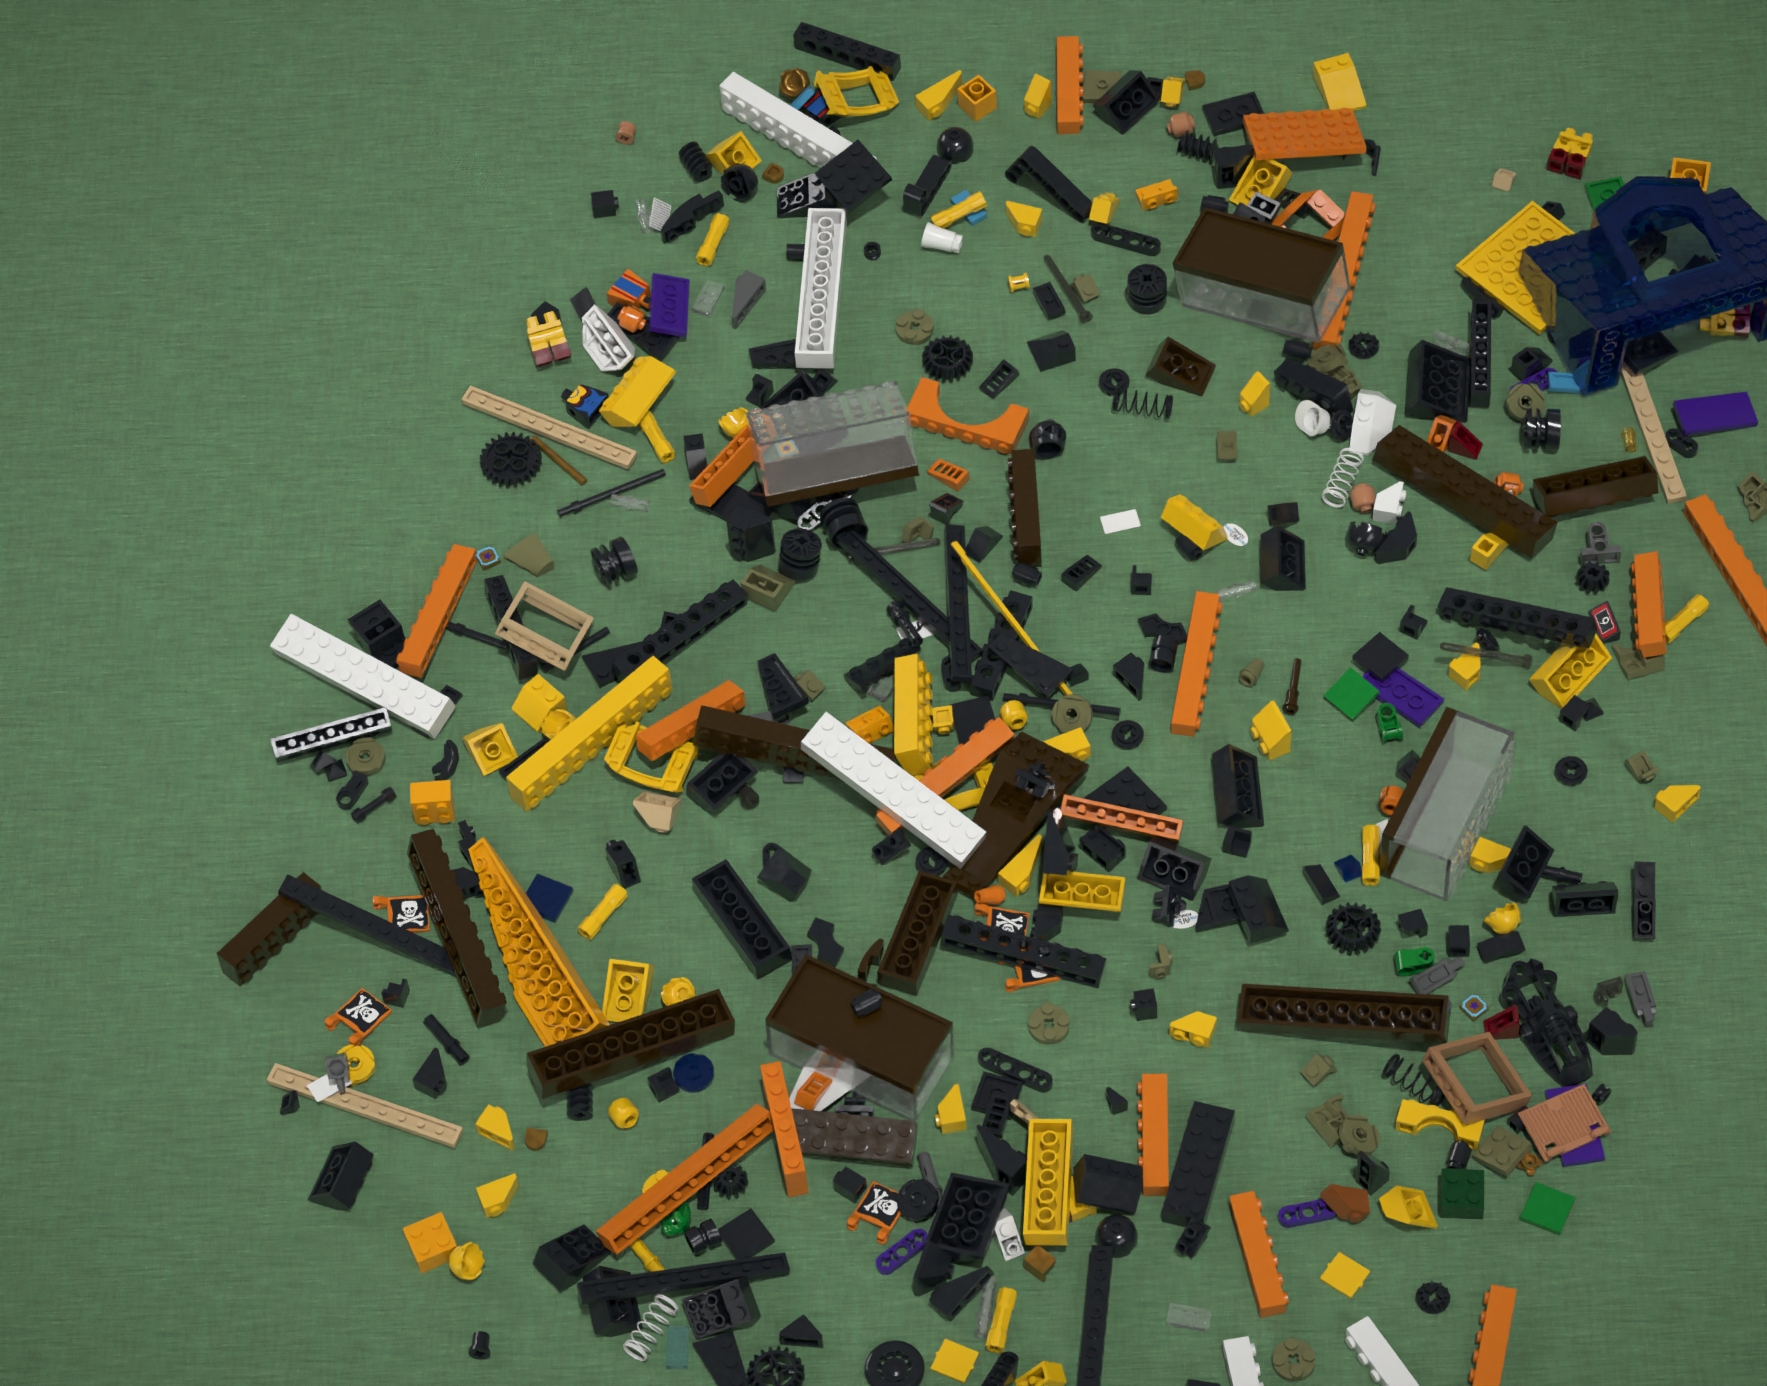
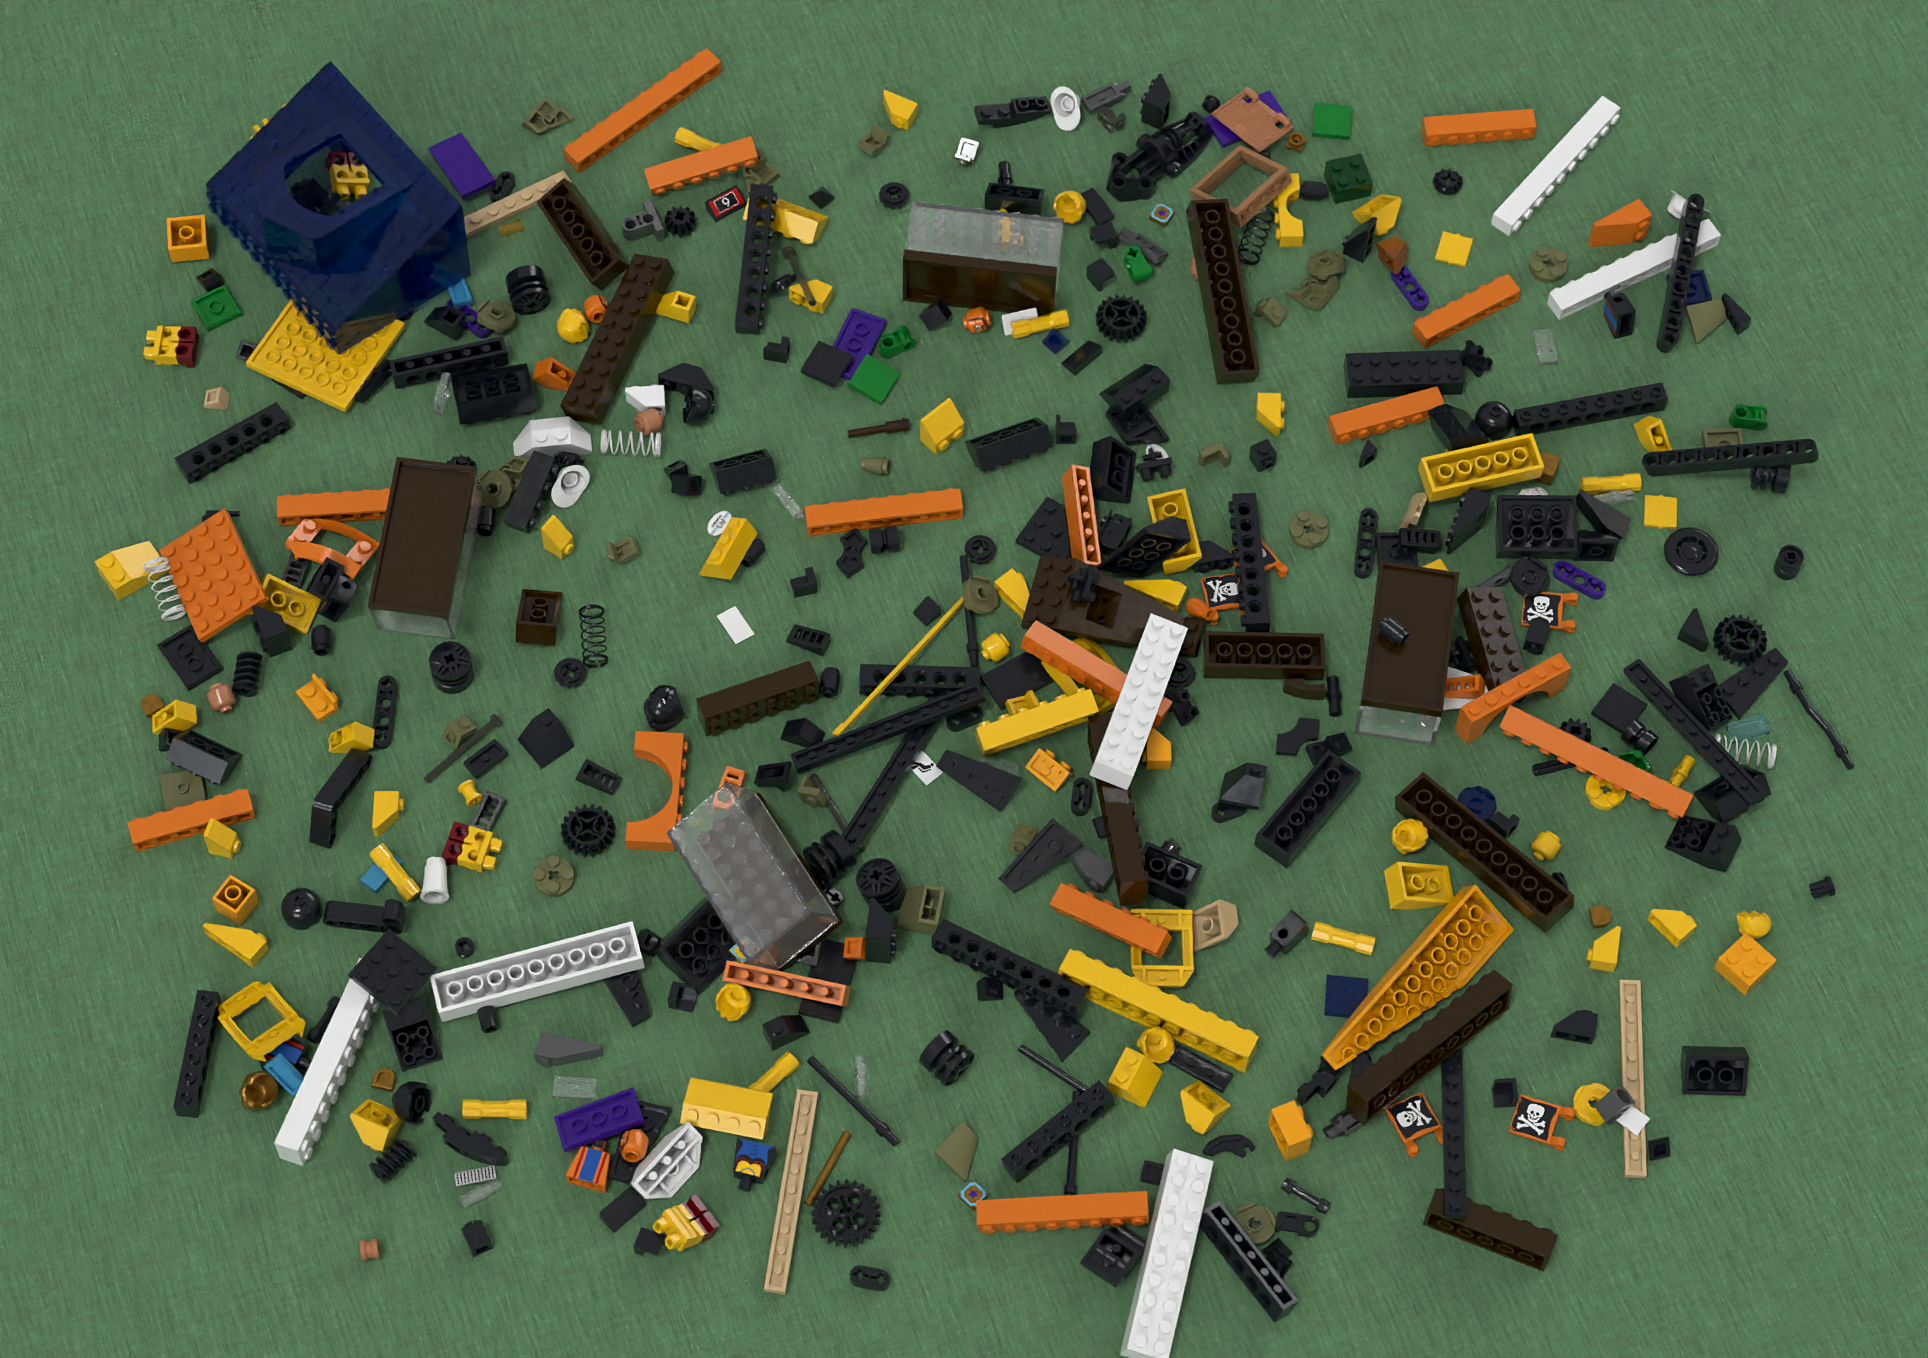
camera: 115 degrees left, 5 degrees up
(449, 465) = (868, 1283): none -> black beam
(451, 1045) = (1537, 1023): black pin -> none
(536, 643) = (1062, 1115): tan window -> none
(855, 816) = (1157, 751): none -> light orange slope
(913, 636) = (923, 777): black pin -> none
(963, 271) = (471, 848): none -> yellow hips
(1003, 302) = (481, 810): none -> black slope
(1031, 665) = (942, 638): black wing -> none
(1130, 674) = (915, 560): black slope -> none
(1305, 510) = (676, 467): none -> black slope
(1329, 99) = (157, 568): none -> white piece
(1447, 179) = (222, 443): none -> black brick
(1464, 442) = (558, 352): dark red slope -> none
(1494, 461) = (573, 326): none -> yellow hair
(1502, 1151) = (1297, 158): olive plate -> none
(1504, 1024) = (1173, 185): dark red slope -> none
(1573, 711) = (834, 203): black panel -> none
(1584, 899) = (1026, 152): black slope -> none
(1604, 847) = (966, 151): none -> bracket
(1635, 955) = (1065, 108): none -> white piece

